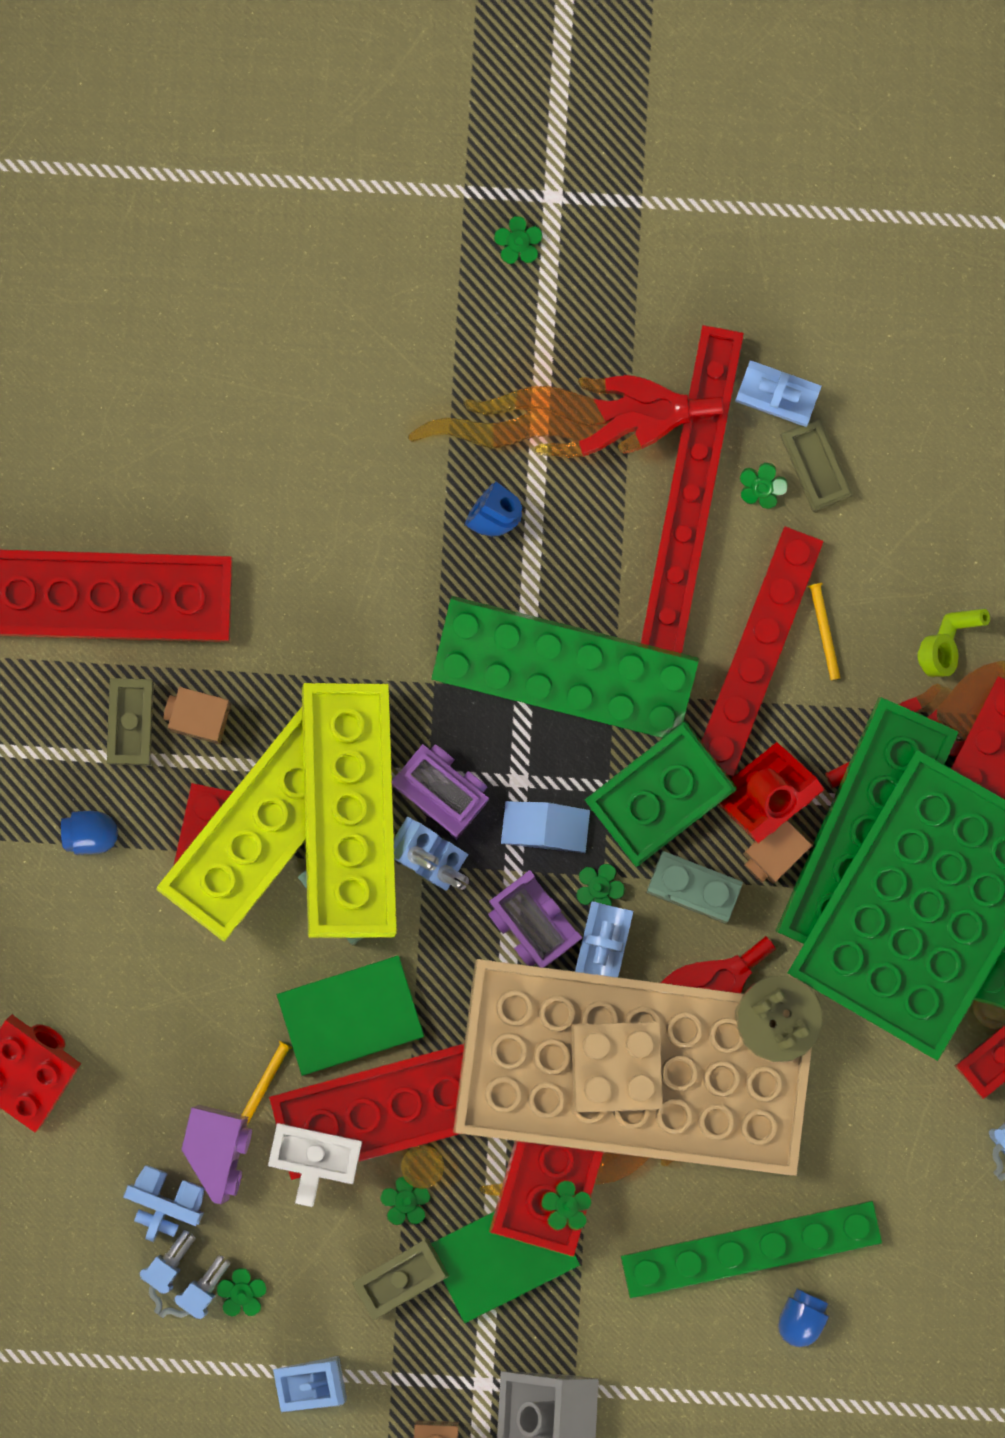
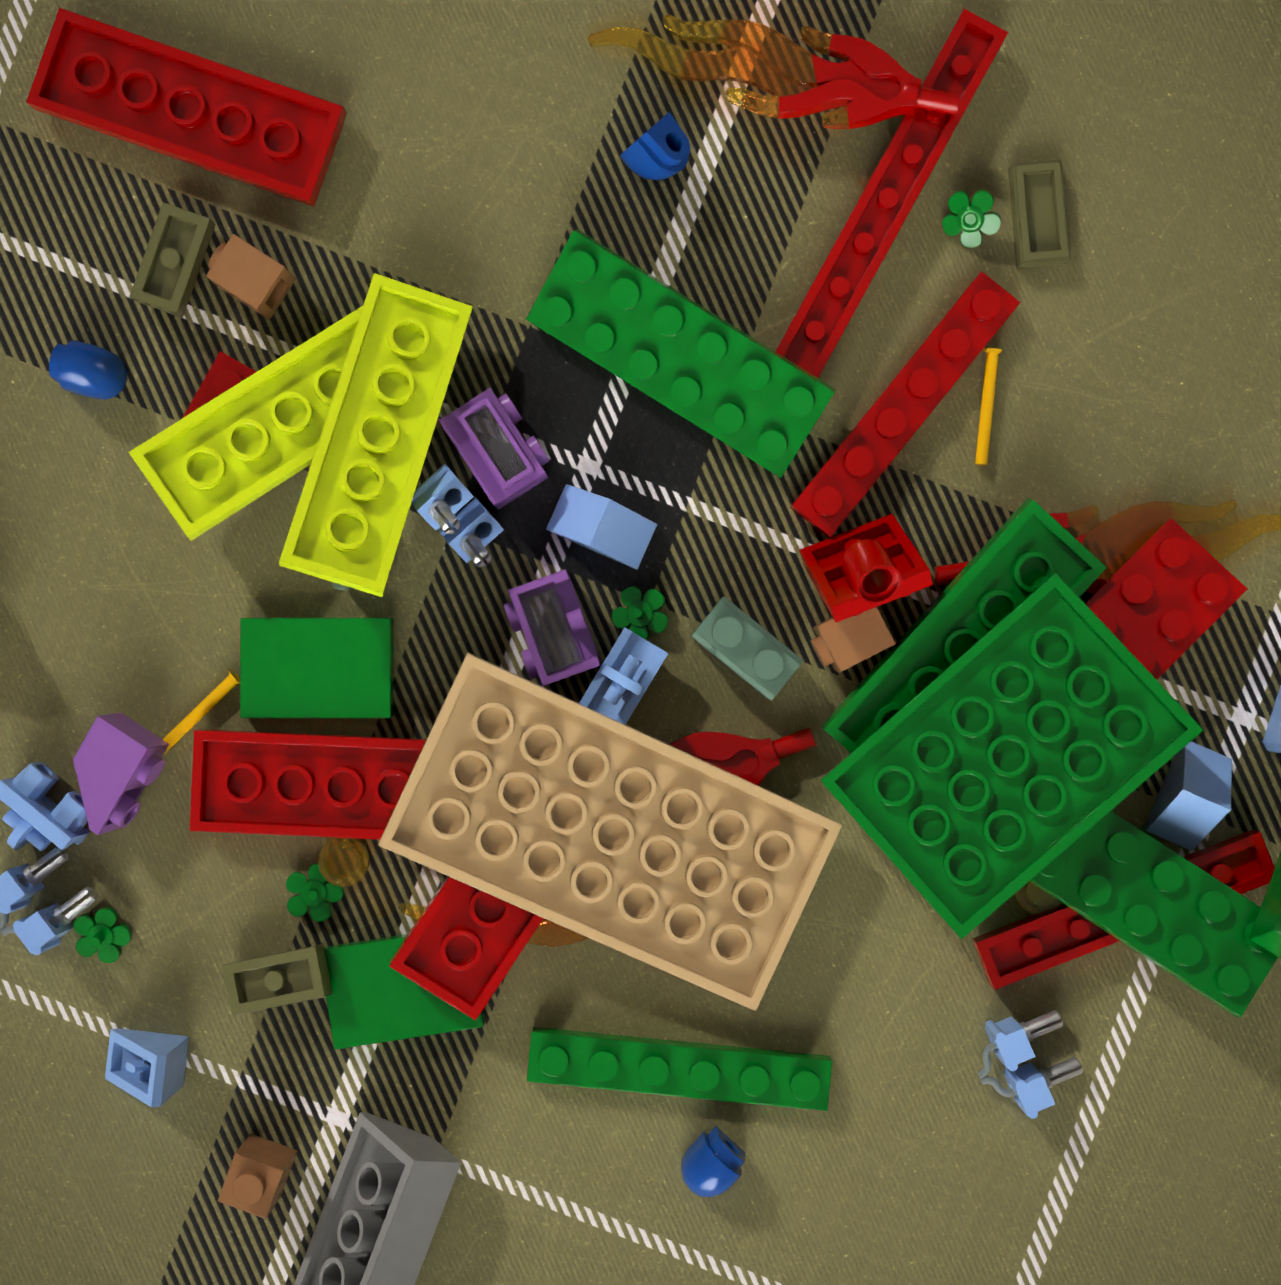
camera: 15 degrees right, 5 degrees up
(314, 1156) = (219, 816): white plate -> none
(566, 1206) = (483, 964): green plant -> none
(616, 1066) = (589, 828): tan plate -> none
(661, 794) = (743, 530): green tile -> none
(766, 1002) = (787, 807): olive plate -> none
(778, 393) = (1025, 114): light blue hips -> none
(939, 652) = (1109, 469): lime plate -> none

